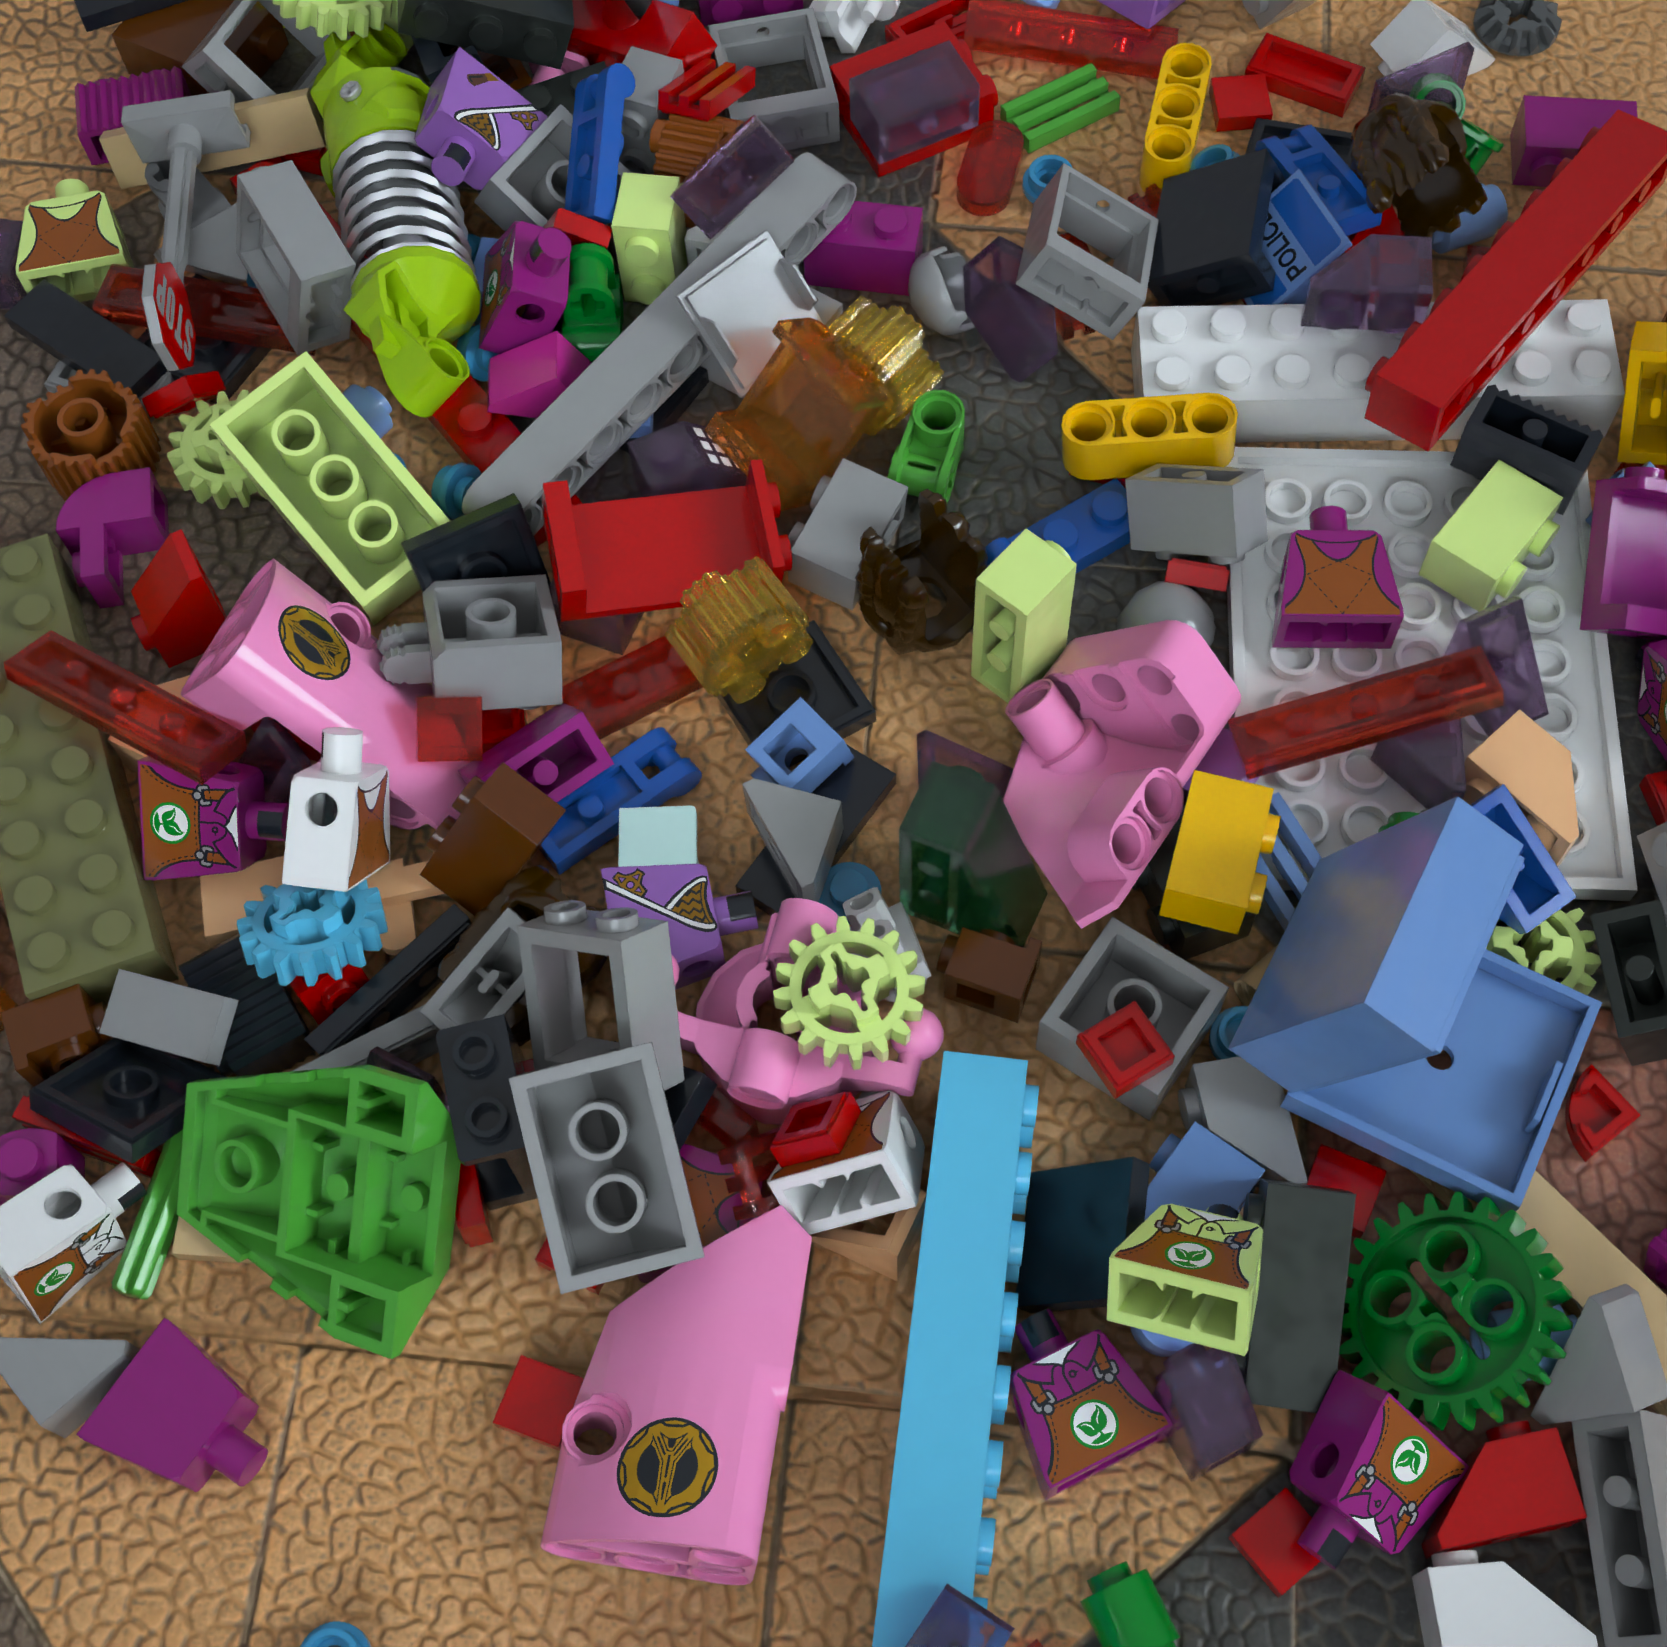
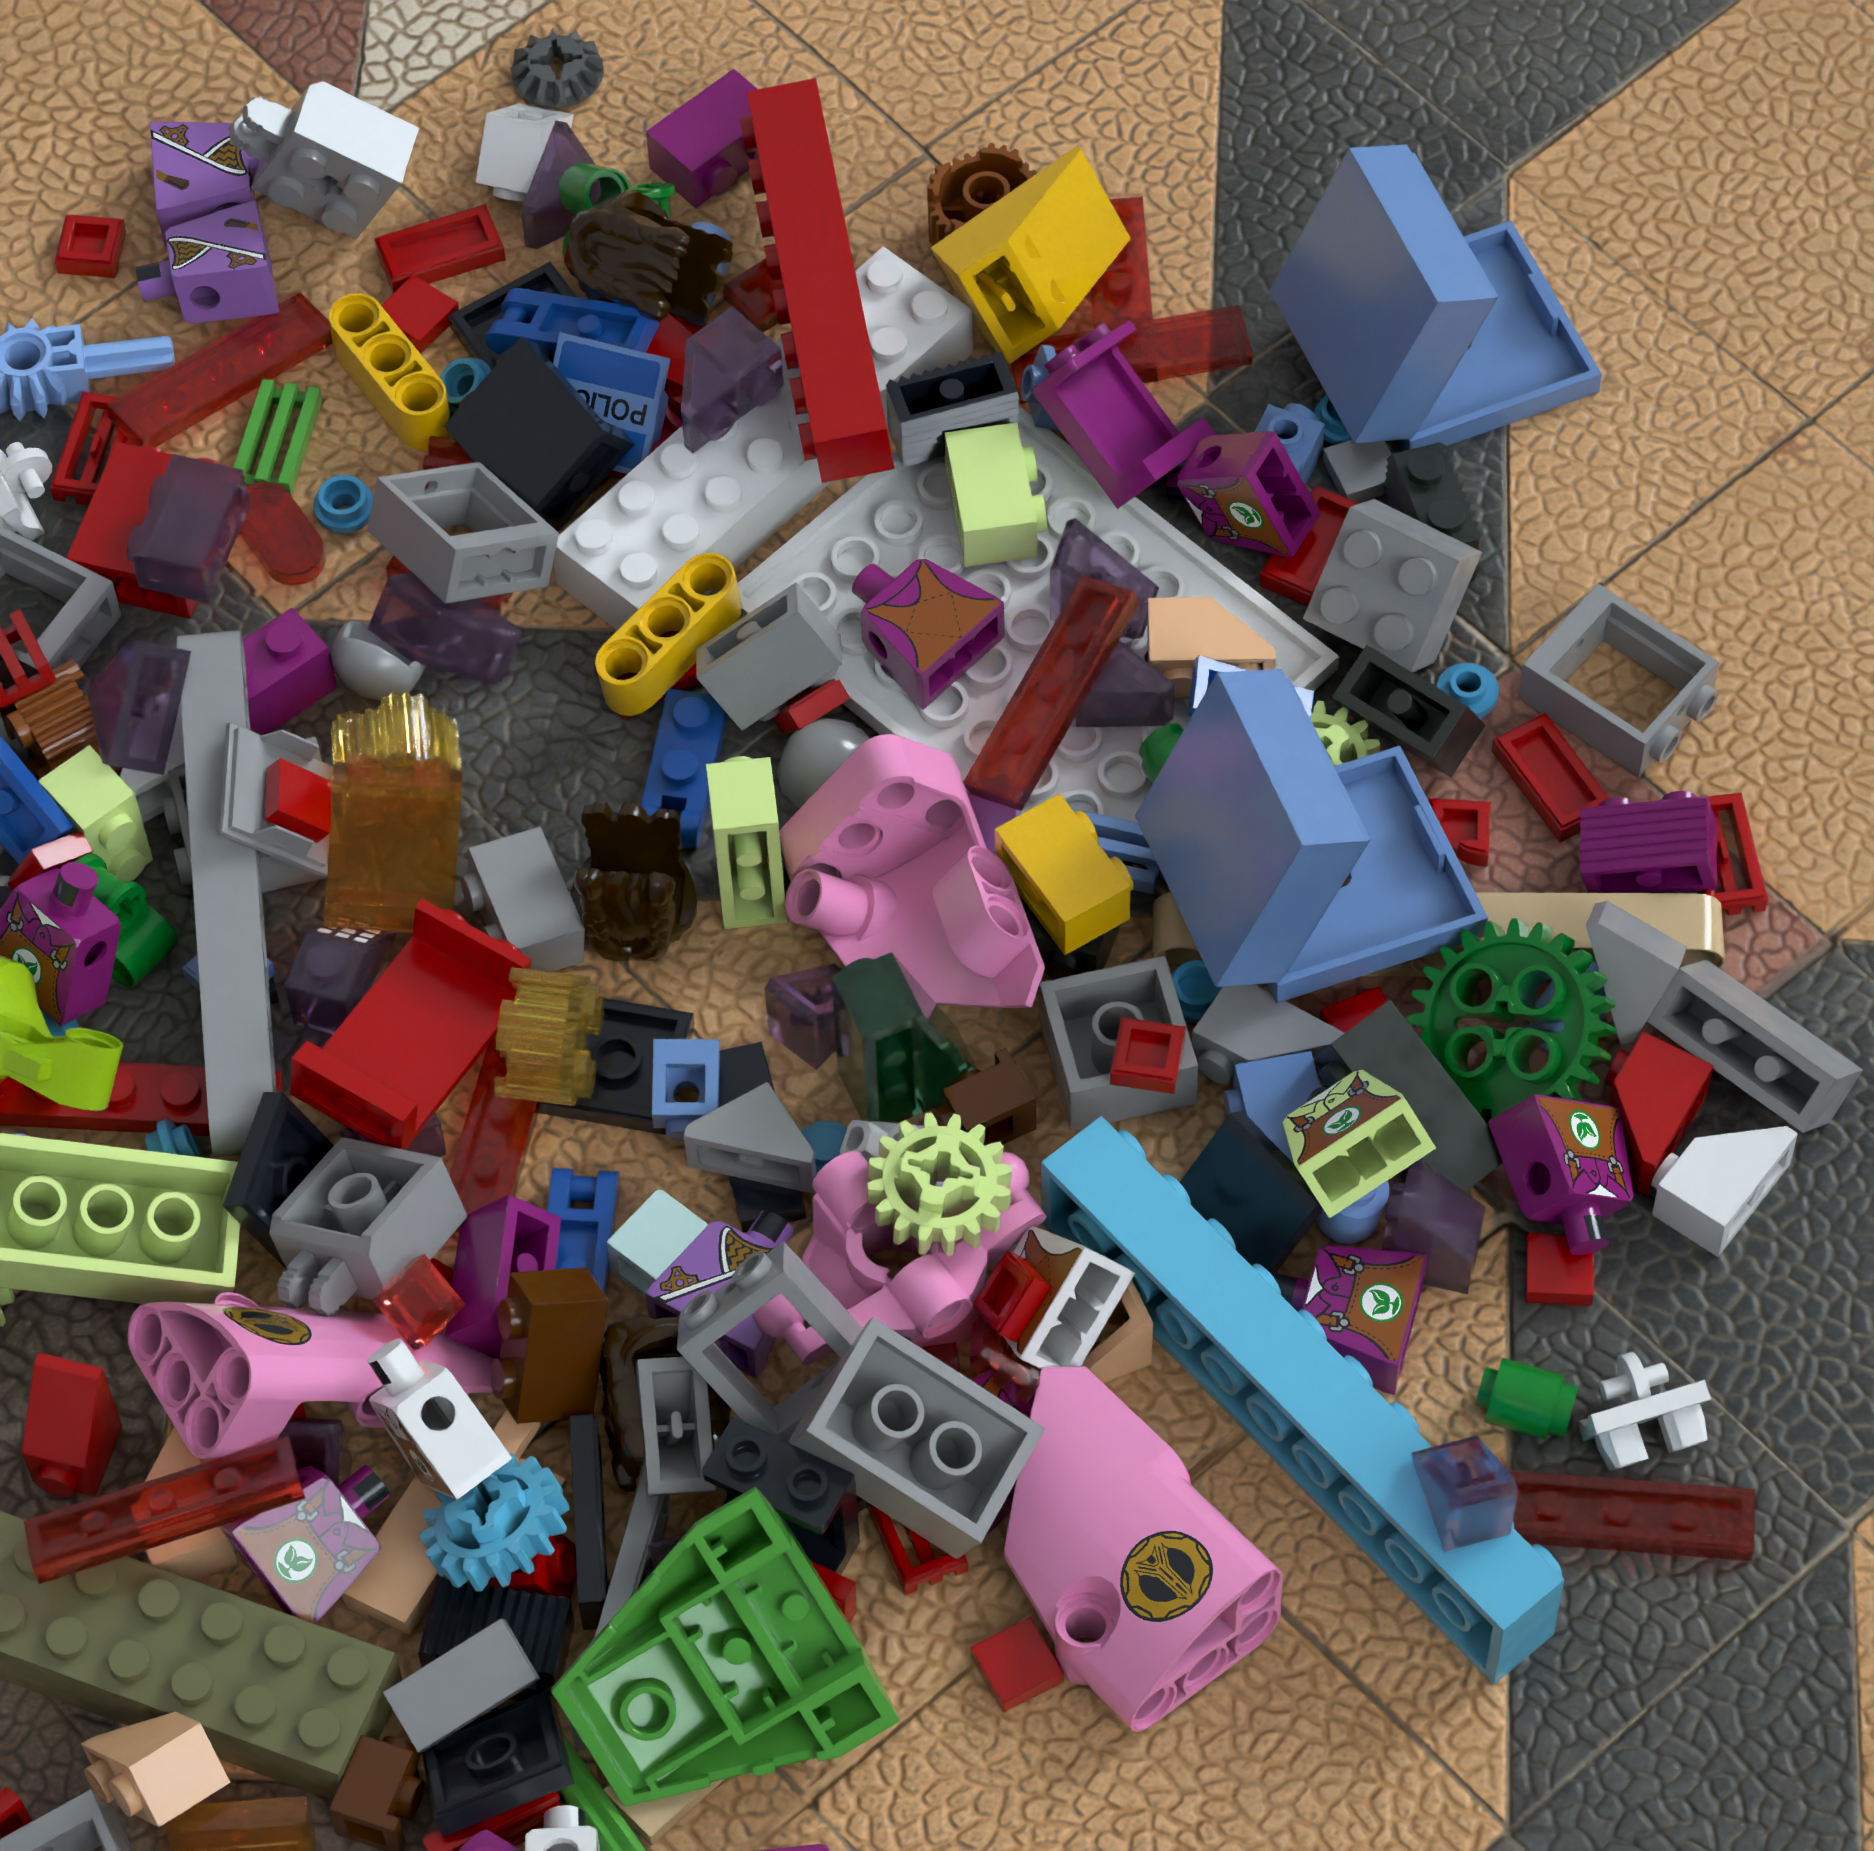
camera: 50 degrees left, 5 degrees down
(533, 375) = (141, 1006): dark pink slope -> none
(752, 322) = (298, 800): none -> red tile
(926, 455) = (515, 795): bright green piece -> none

